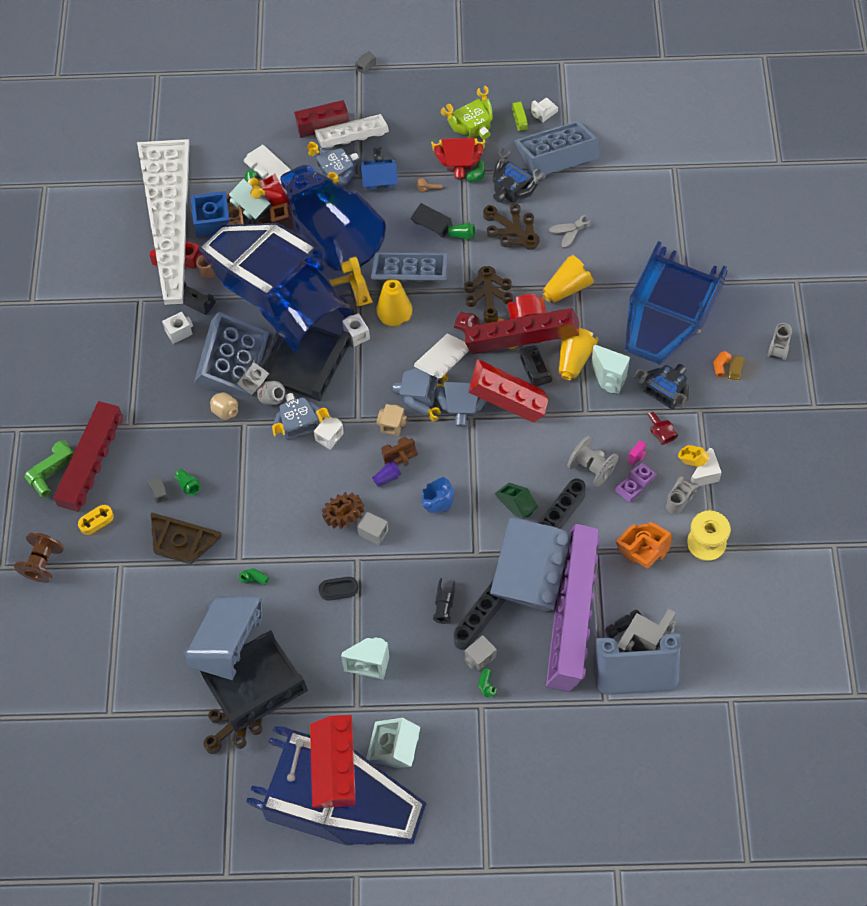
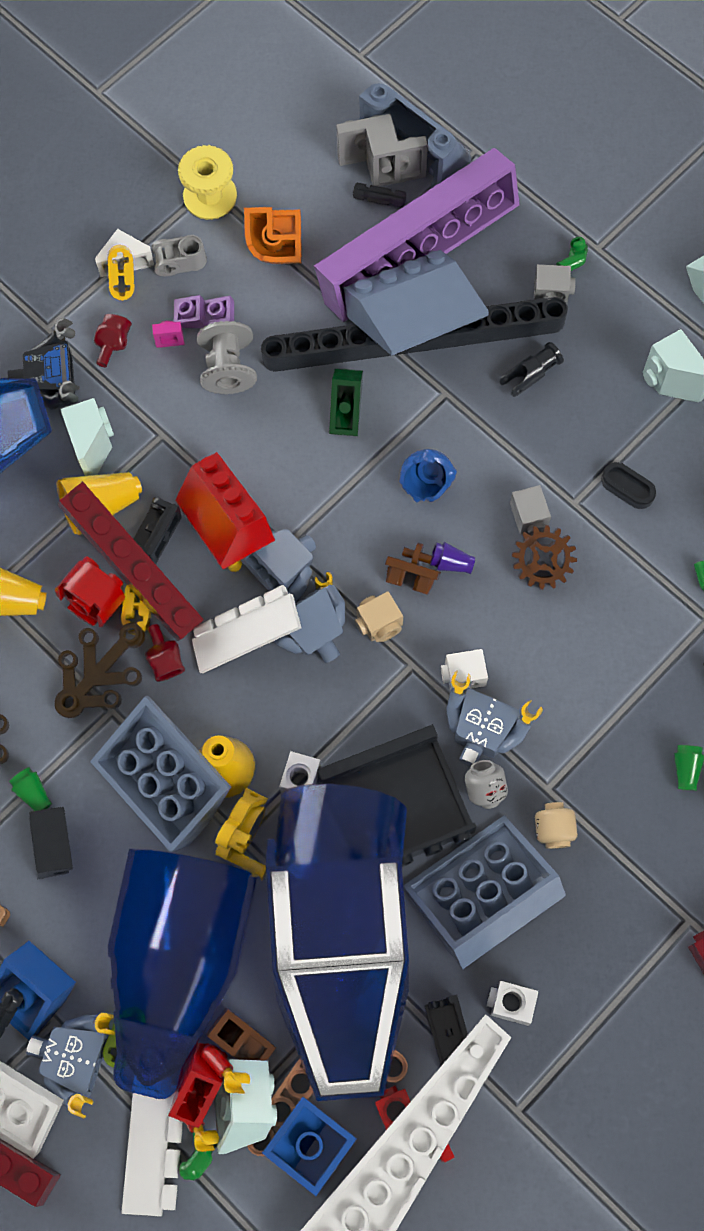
camera: 135 degrees left, 10 degrees up
(252, 378) = (491, 822): light grey brick -> none

